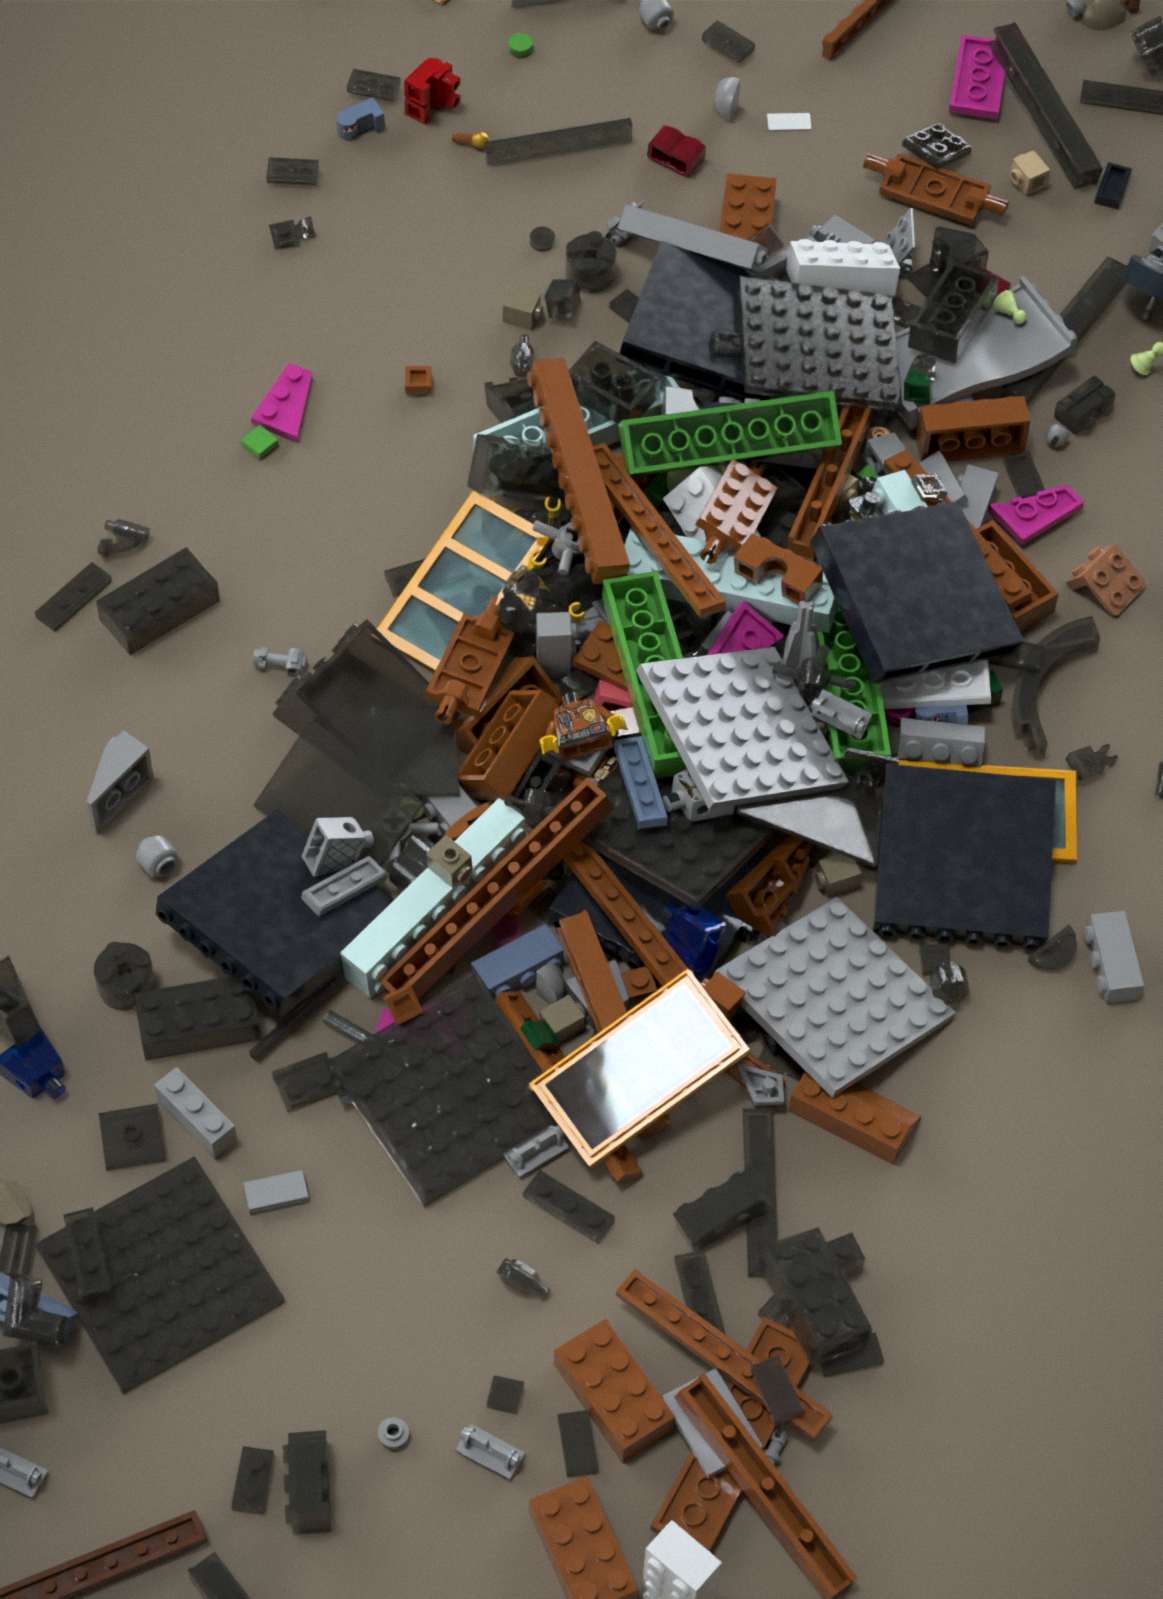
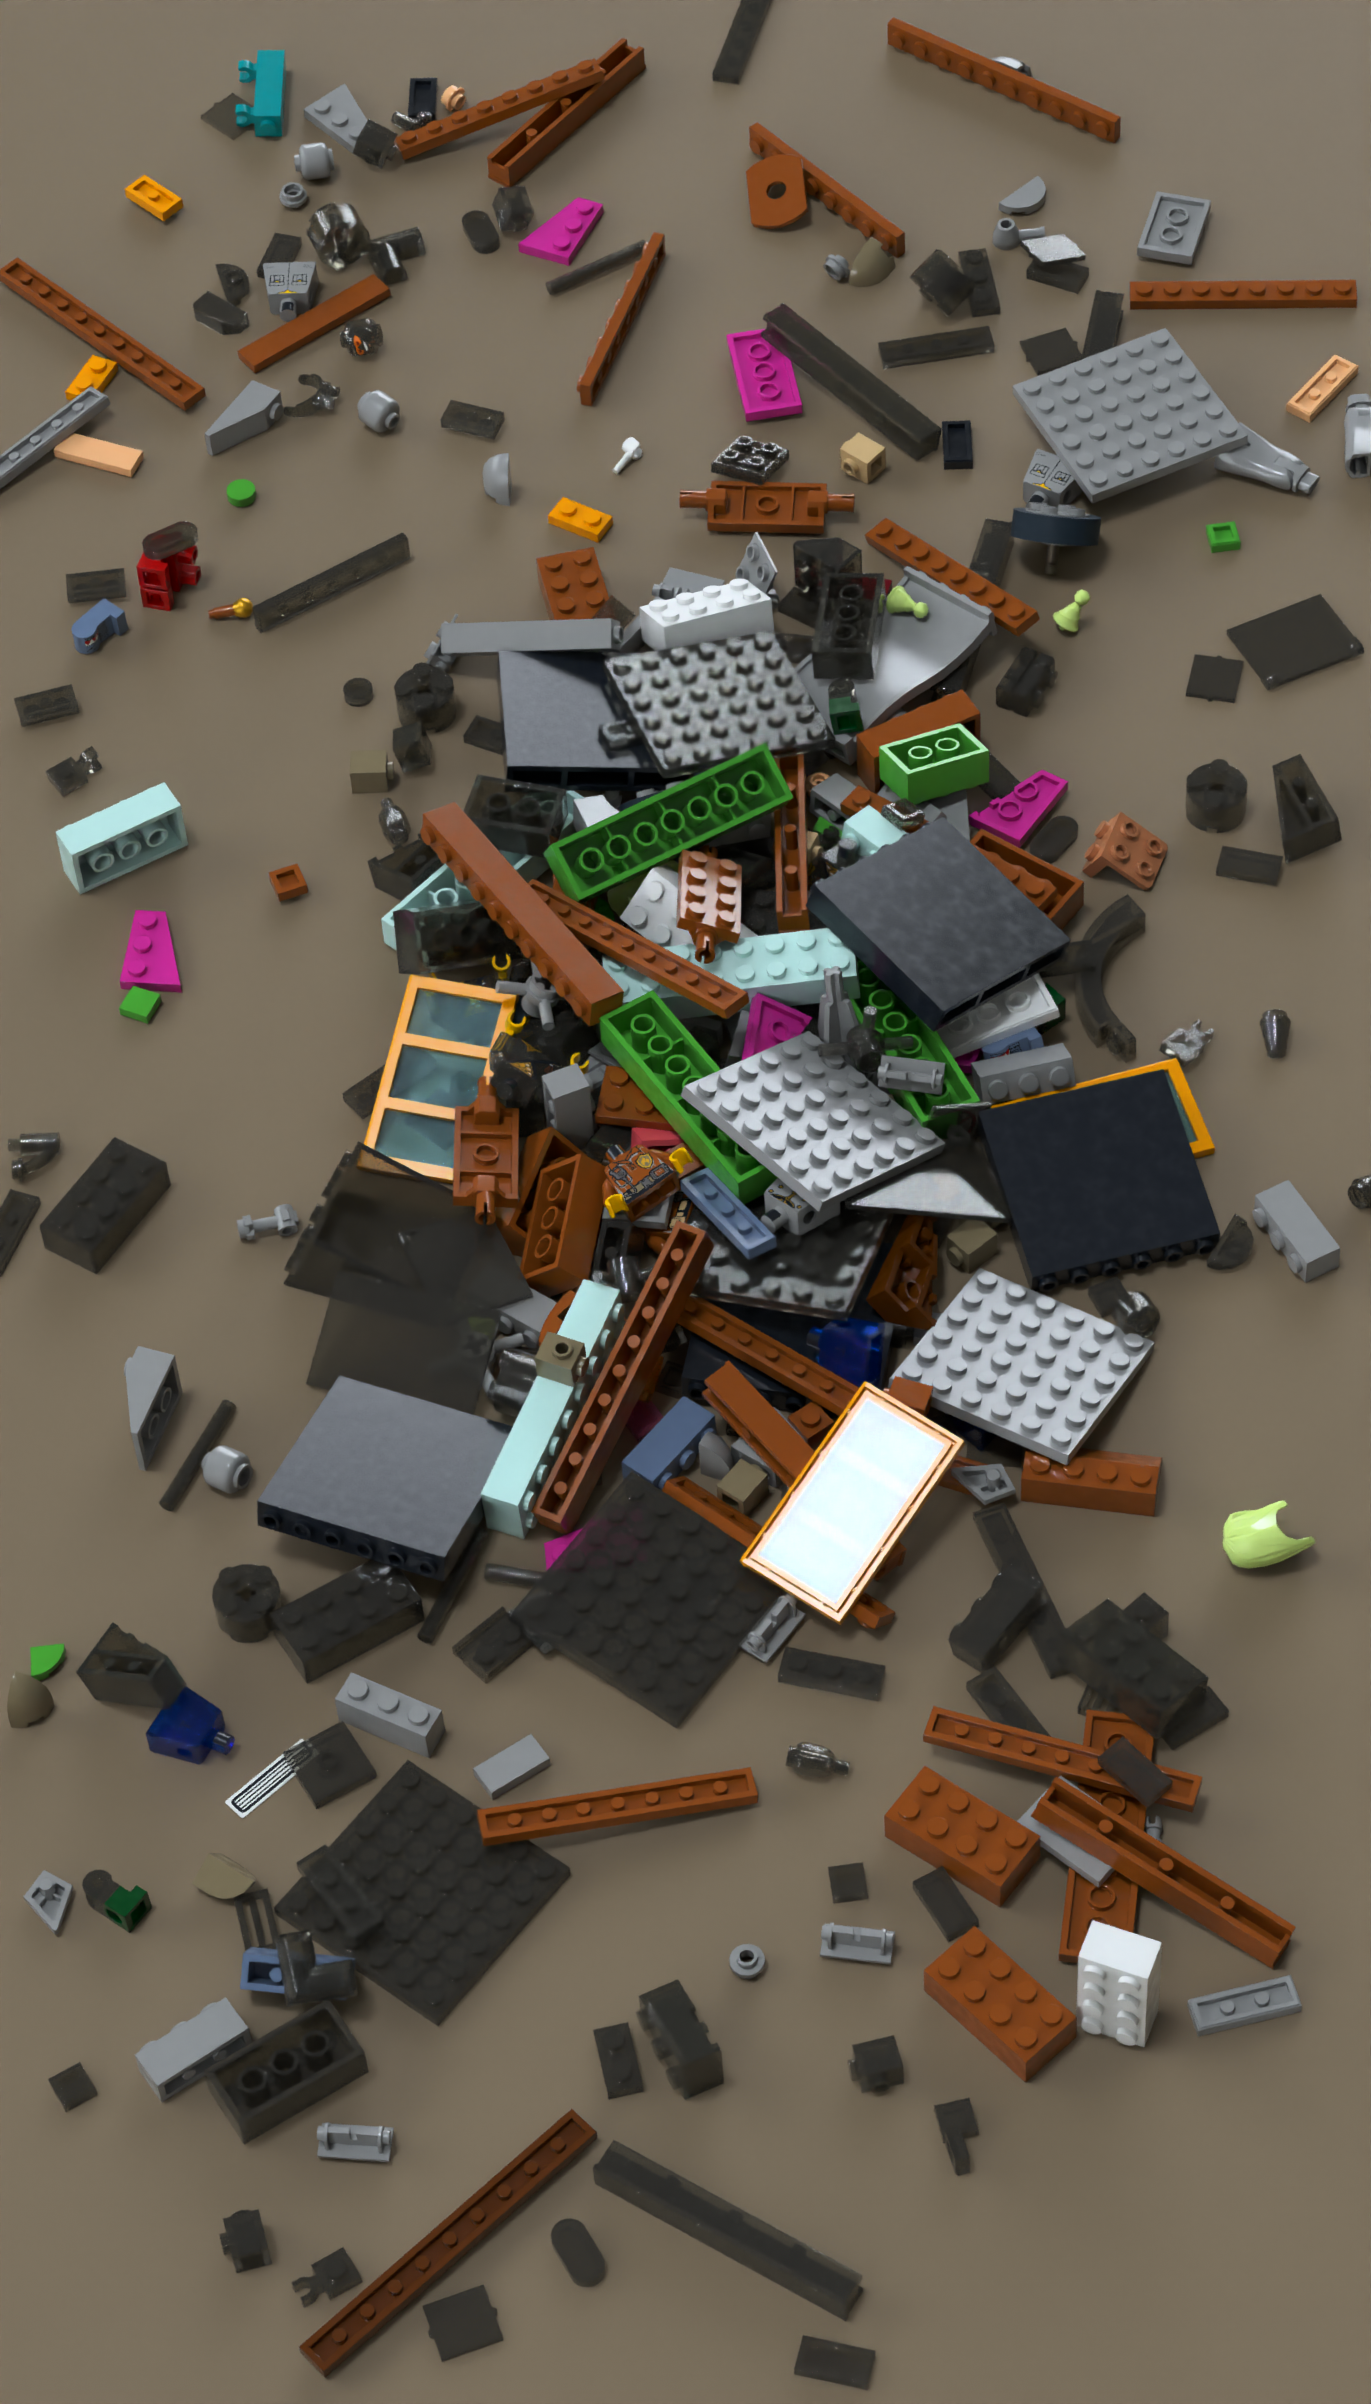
camera: 15 degrees left, 5 degrees down
(71, 1135) = (261, 1786): none -> sticker
(147, 830) = (194, 1459): none -> clear smoke piece
(300, 300) = (122, 838): none -> light aqua brick
(335, 844) = (423, 1388): light grey torso -> none
(342, 1259) = (617, 1806): none -> dark orange plate
(344, 886) = (450, 1428): light grey tile -> none
(403, 1004) = (569, 1525): dark orange plate -> none
(439, 66) = (170, 540): none -> clear smoke tile
(459, 1566) = (876, 2065): none -> clear smoke brick
(539, 1035) = (728, 1509): dark green tile -> none
(676, 151) = (466, 552): dark red brick -> none
(761, 557) = (762, 938): dark orange arch -> none
(780, 152) = (580, 519): none -> light orange plate
(789, 121) = (575, 484): white sticker -> none
(846, 108) = (631, 450): none -> white hand
(967, 1218) = (1256, 1540): none -> yellowish green hair
(974, 452) = (934, 764): none -> bright green brick
(1053, 547) = (1054, 838): none -> clear smoke tile
(1057, 435) = (1009, 722): light grey hinge -> none
(1061, 298) = (913, 552): none -> dark orange plate

